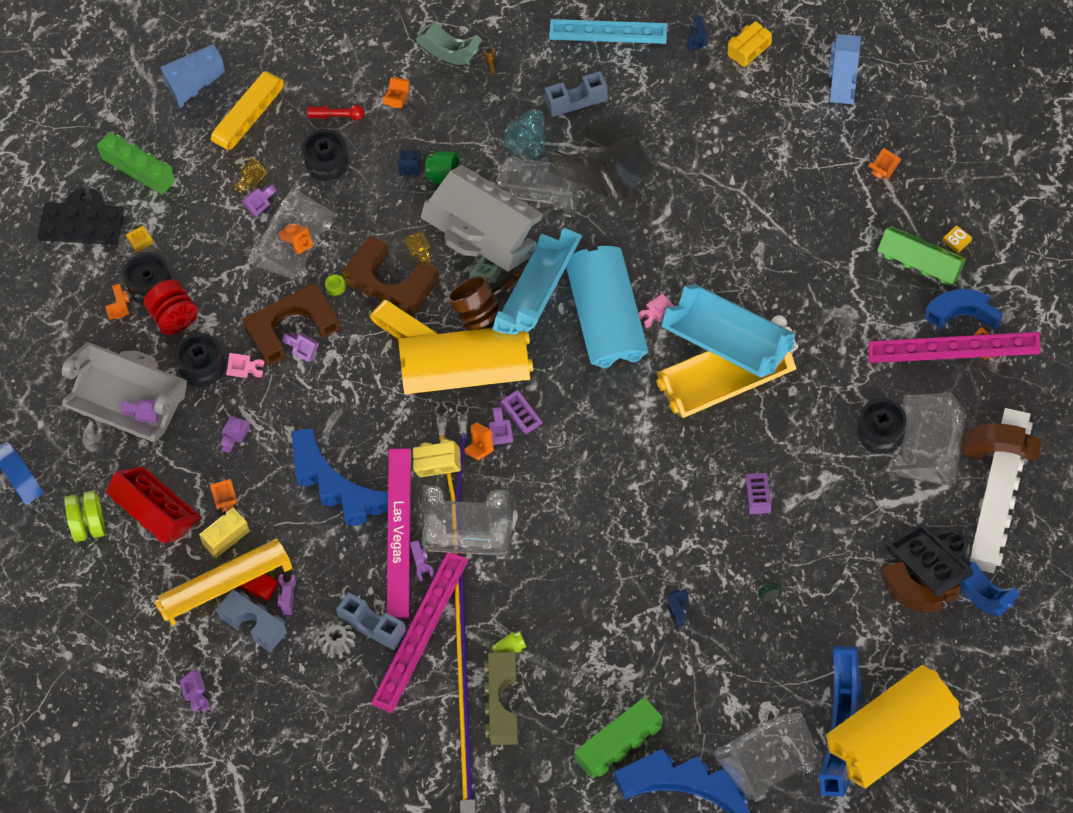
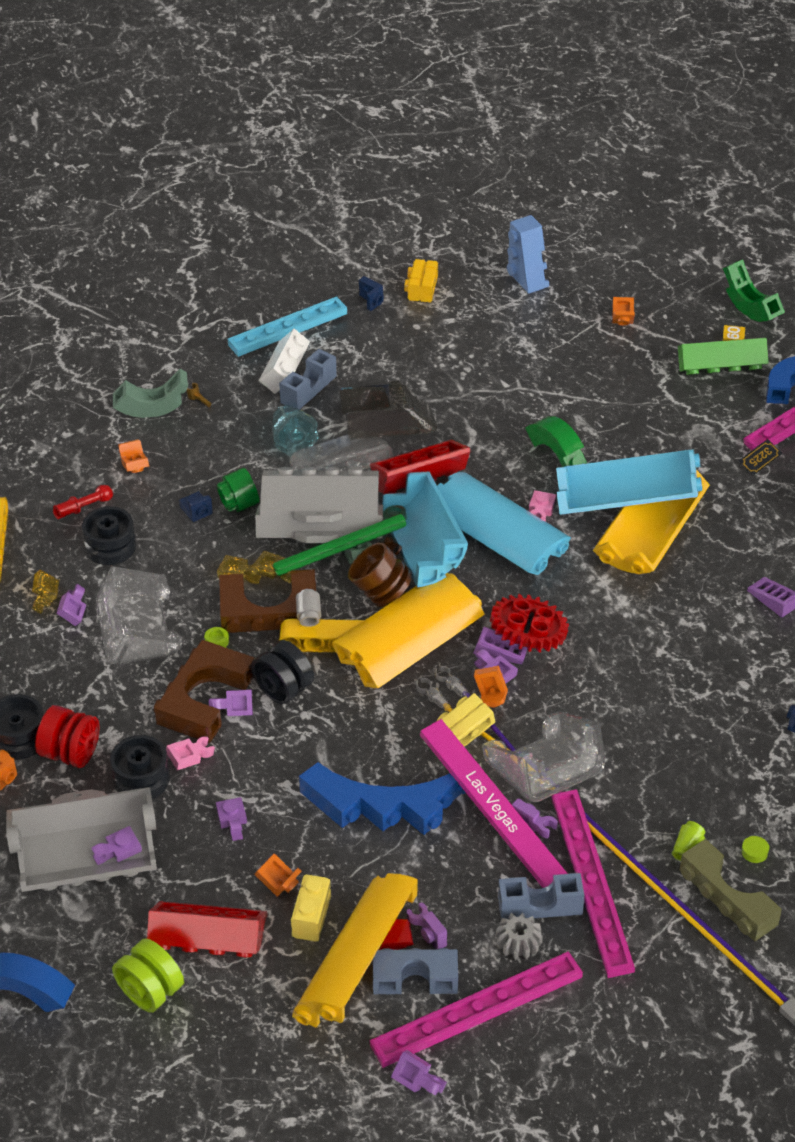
camera: 40 degrees left, 15 degrees down
(272, 671) = (476, 1008): none -> dark pink tile
(297, 236) = (141, 612): orange bracket -> none
(342, 343) = (282, 672): none -> black wheel
(392, 234) = (238, 565): none -> clear yellow plate
(402, 301) = (308, 607): none -> light grey brick
(468, 260) = (339, 545): none -> green axle
(538, 255) = (393, 511): none -> clear green tile
(551, 680) = (755, 849): none -> lime tile
(564, 420) = (546, 629): none -> red gear
(574, 65) = (284, 360): none -> white brick
(588, 221) = (437, 459): none -> red slope
(713, 262) = (560, 438): none -> green arch
(865, 366) = (760, 457): none -> black sticker
(1000, 208) = (747, 298): none -> green arch

